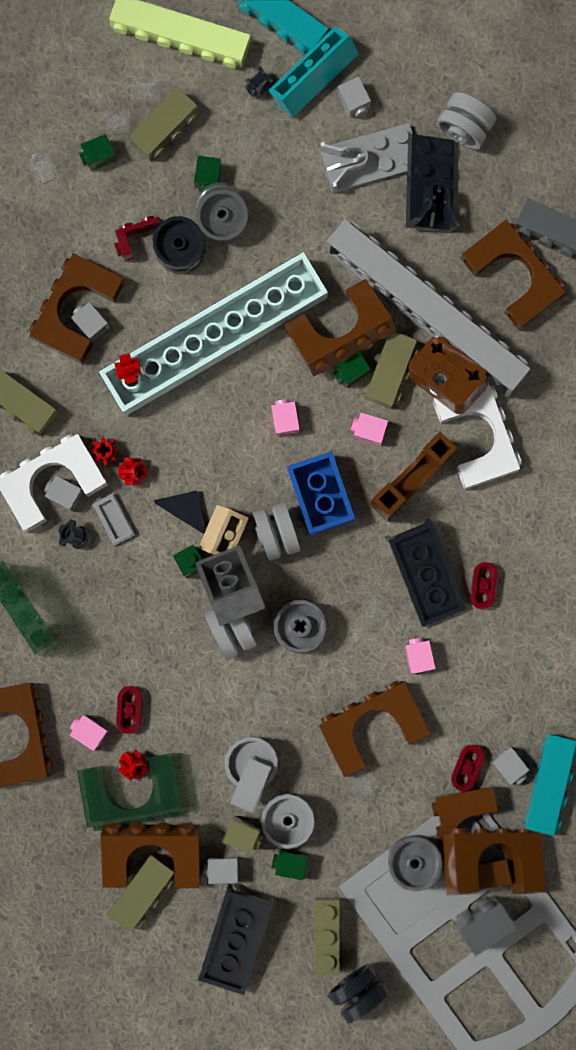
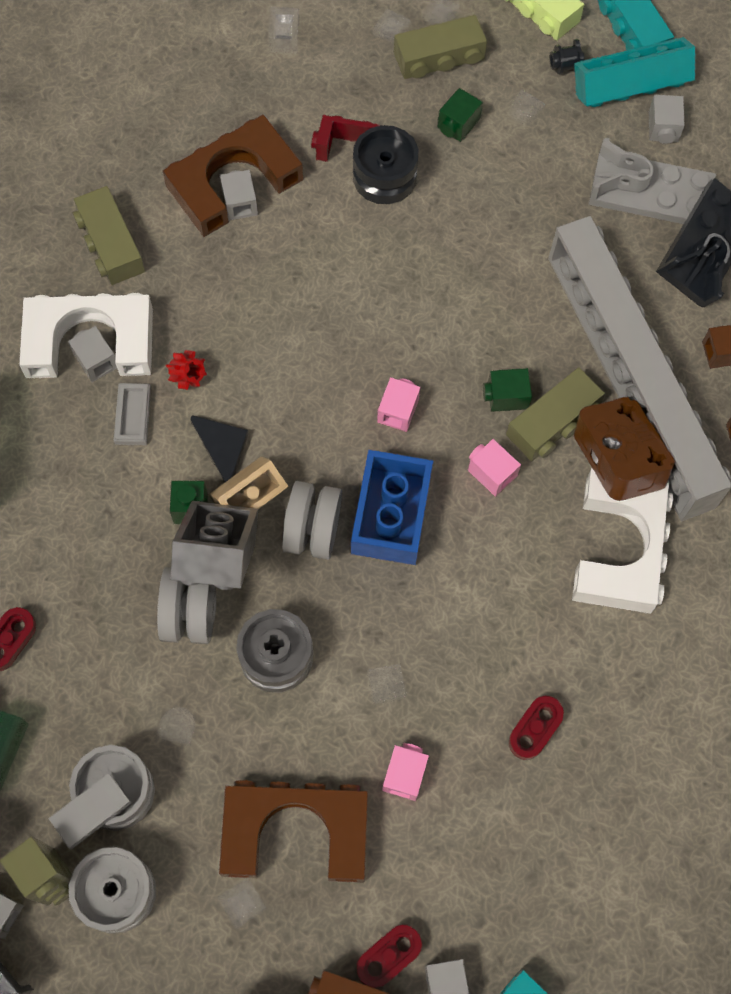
camera: 20 degrees right, 15 degrees down
(73, 535) = (74, 403): black brick -> none
(97, 152) = (352, 40): dark green brick -> none
(99, 447) = (168, 333): red gear -> none
(128, 368) = (247, 246): red gear -> none
(218, 332) = (369, 272): light aqua brick -> none
(226, 223) = (463, 135): dark grey wheel -> none
(290, 864) = (81, 954): dark green brick -> none
(322, 352) = (486, 349): reddish brown arch -> none
(426, 573) = (471, 671): black plate -> none
(427, 463) = (558, 534): reddish brown arch -> none

